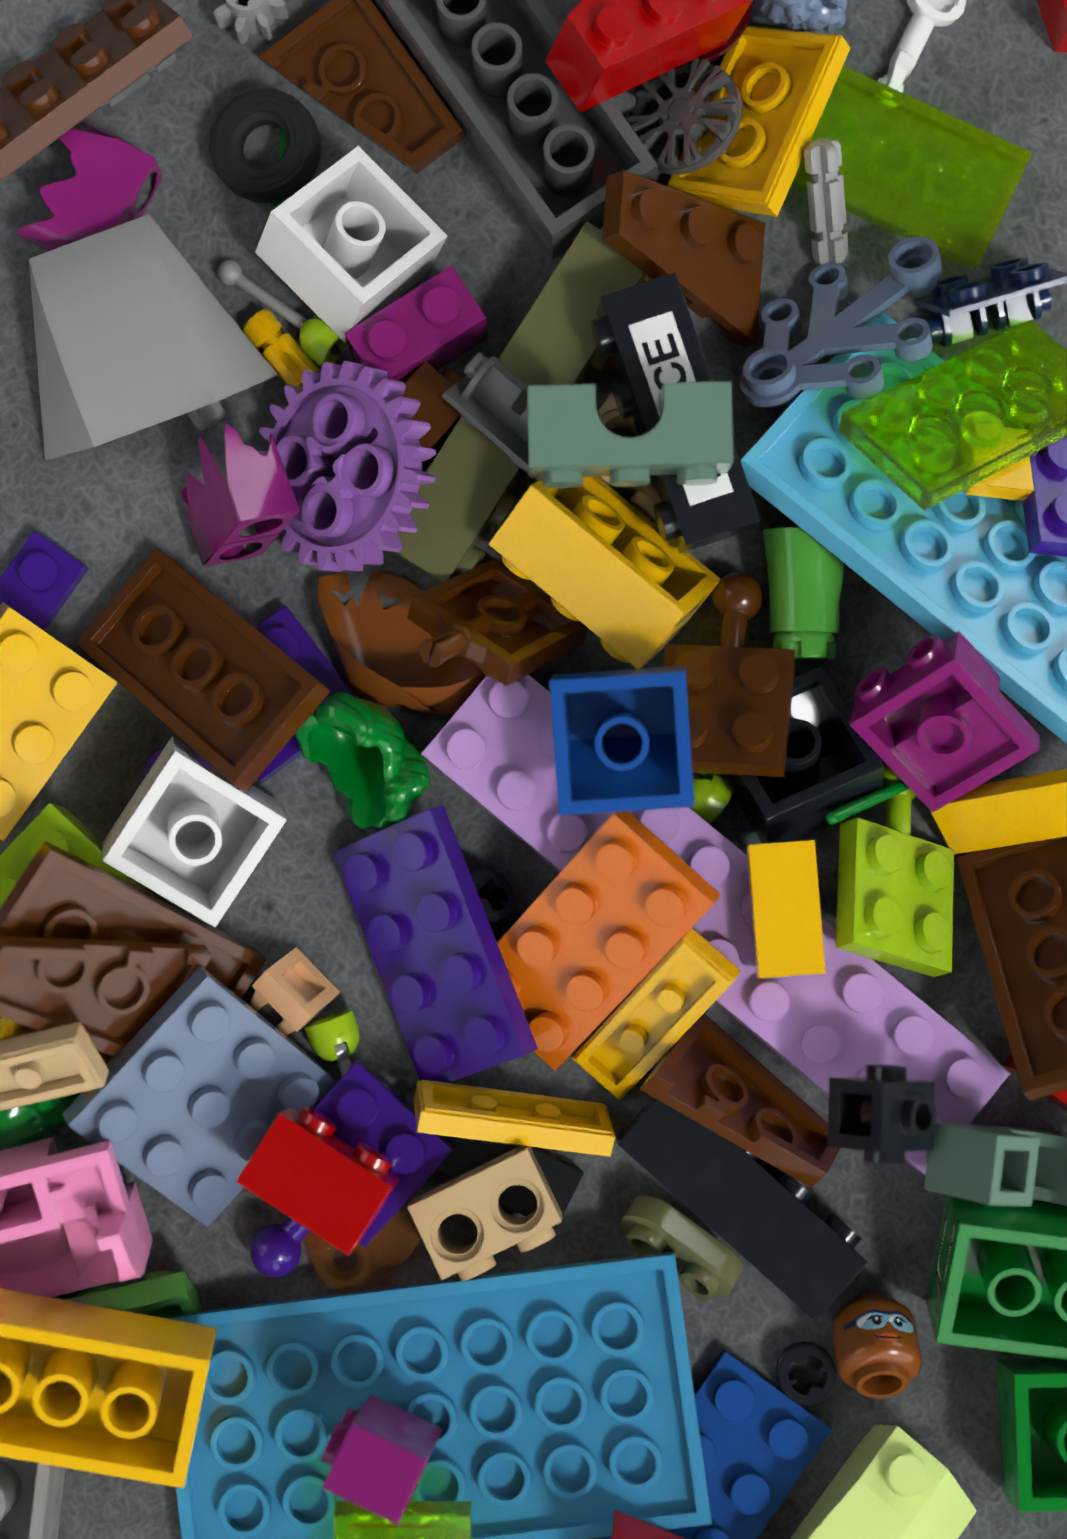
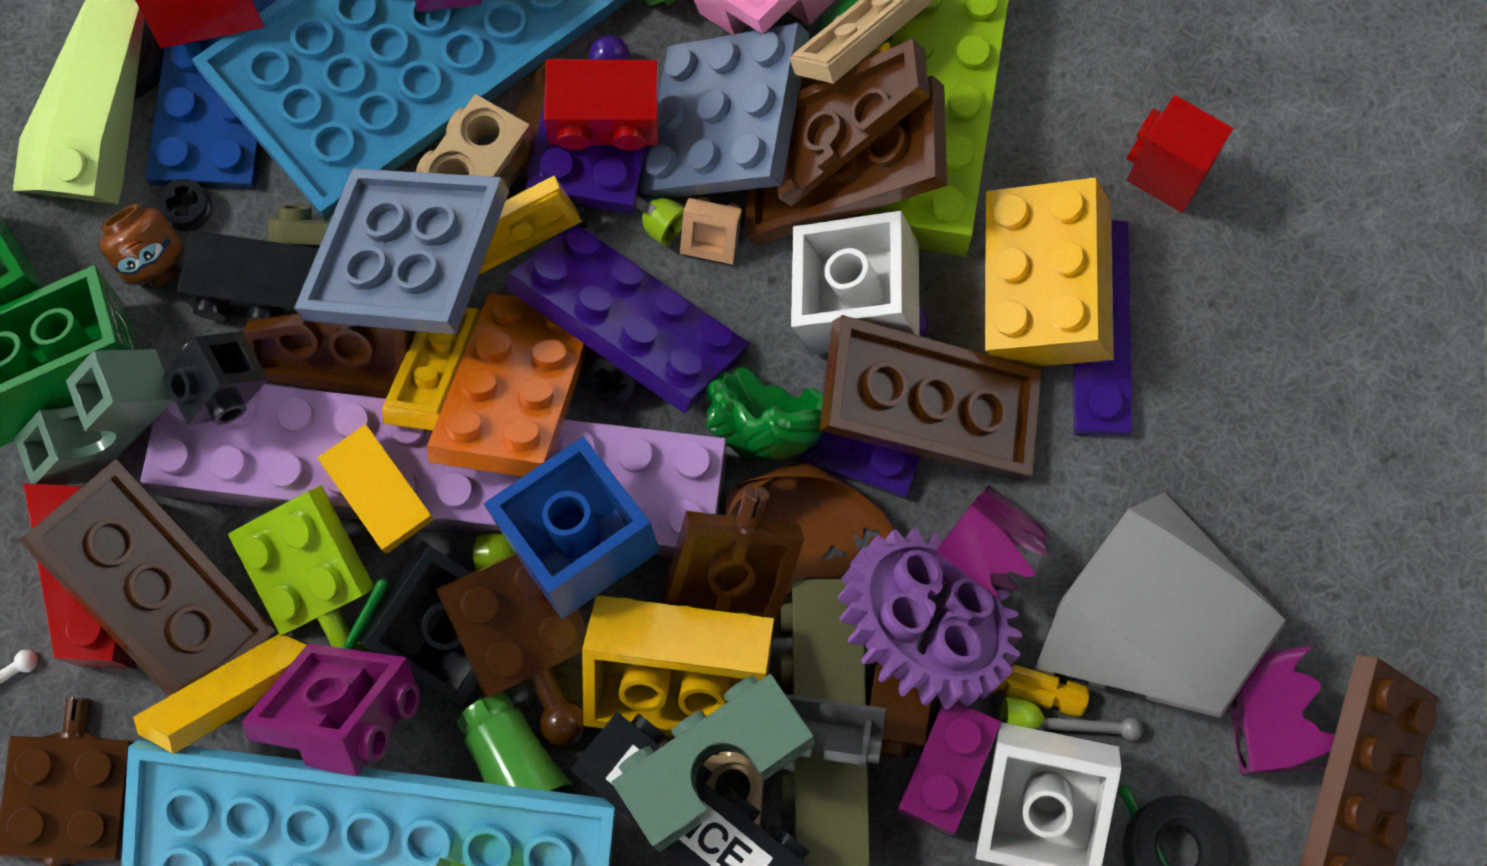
camera: 150 degrees right, 10 degrees down
(617, 1137) = (403, 250): none -> sand blue plate

